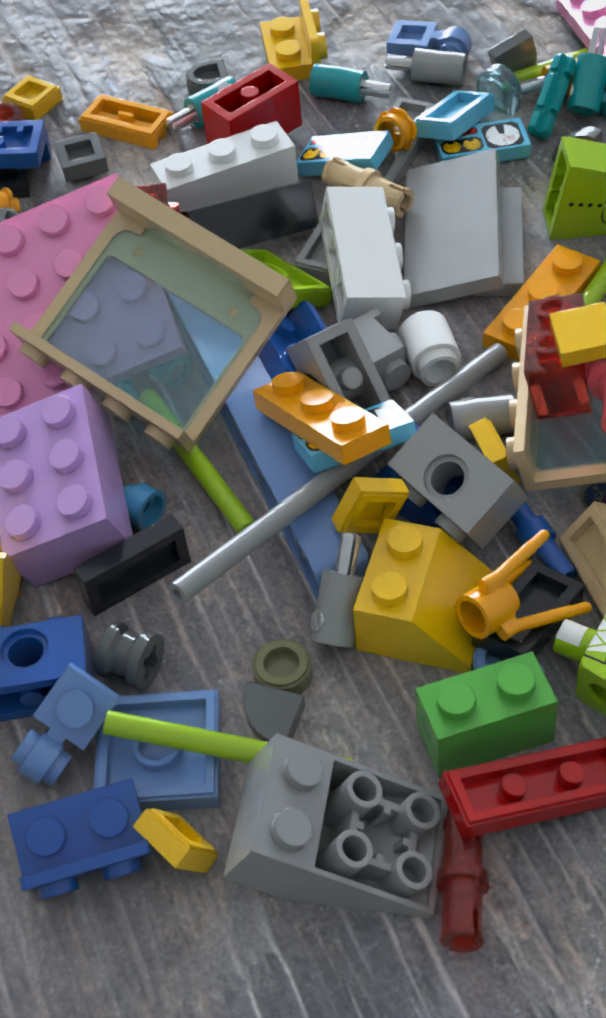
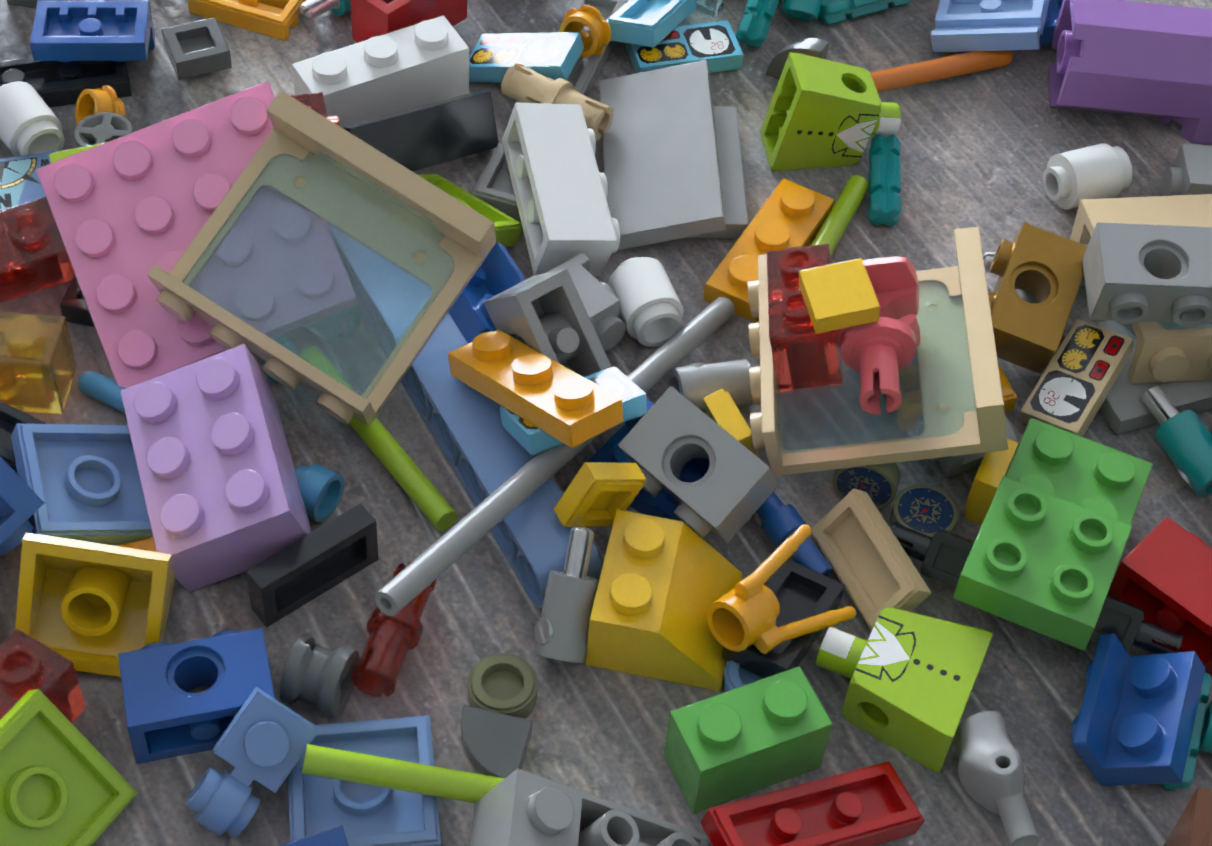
camera: 15 degrees left, 0 degrees up
(192, 624) = (389, 643): none -> clear red pin

